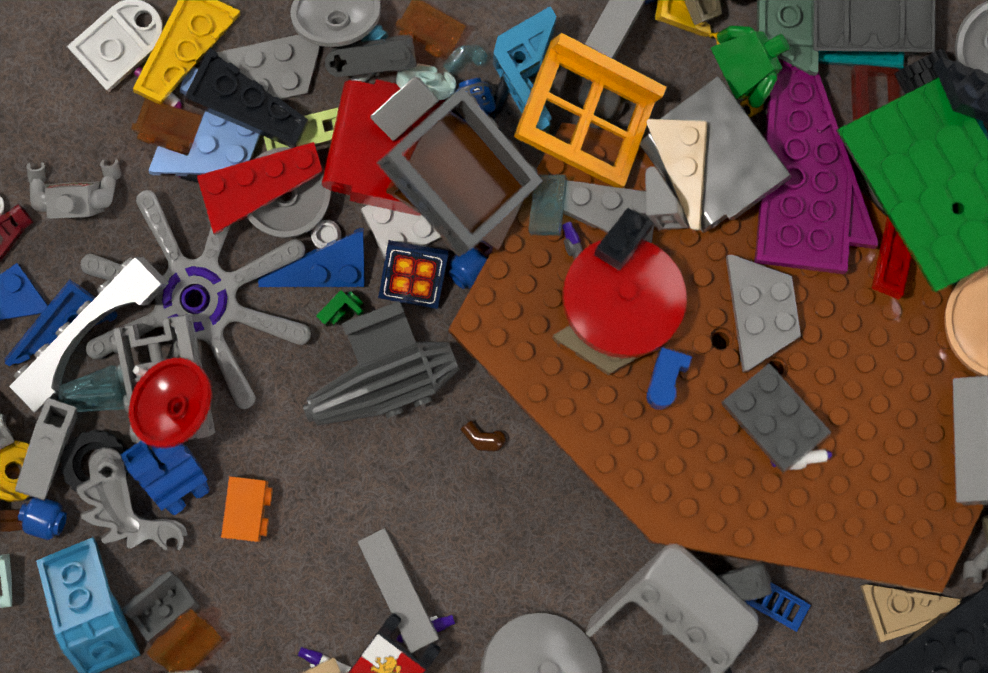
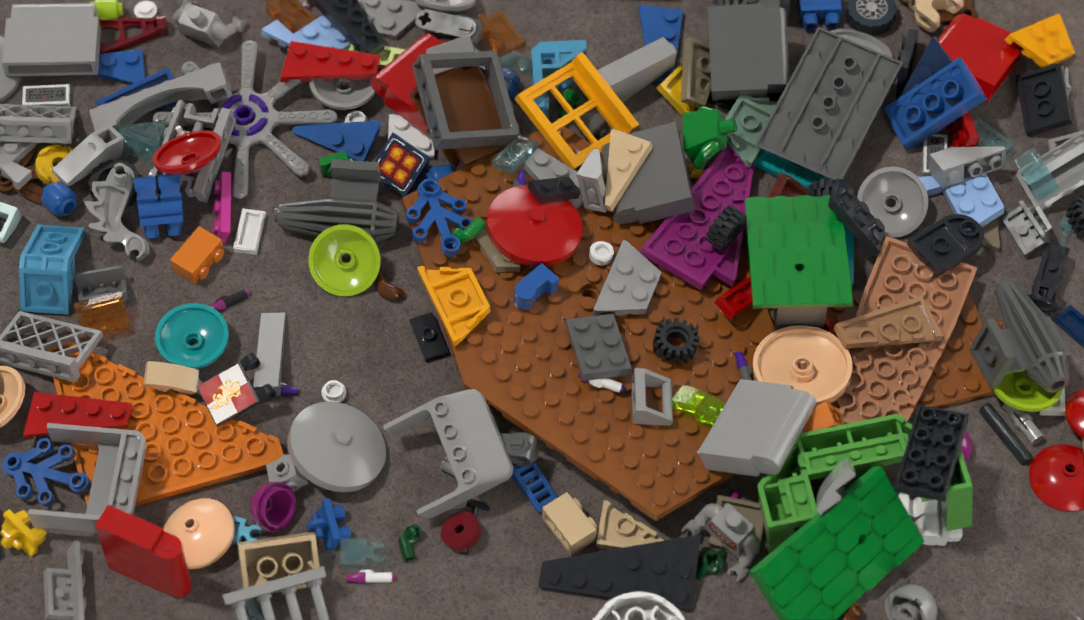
camera: 30 degrees right, 25 degrees down
(238, 432) = (222, 206): none -> dark pink plate
(284, 442) = (249, 231): none -> white tile
(286, 637) = (192, 324): none -> teal dish
(310, 546) = (227, 301): none -> black piece
(422, 448) = (333, 272): none -> lime dish
(495, 600) = (333, 391): none -> white plate
(506, 337) = (438, 215): none -> blue plant
(557, 346) = (470, 231): none -> green arm
(560, 87) = (573, 100): none -> green piece
(561, 476) = (428, 337): none -> black plate
(588, 442) = (456, 299): none -> light orange wing
(711, 284) = (601, 253): none -> white tile
(842, 635) = (569, 523): none -> tan brick
(843, 188) = (726, 227): none -> black tyre
(854, 343) = (679, 330): none -> black tyre
(854, 459) = (643, 414): none -> light grey tile
(922, 431) = (704, 405): none -> clear neon green slope
(944, 355) = (743, 367): none -> piece

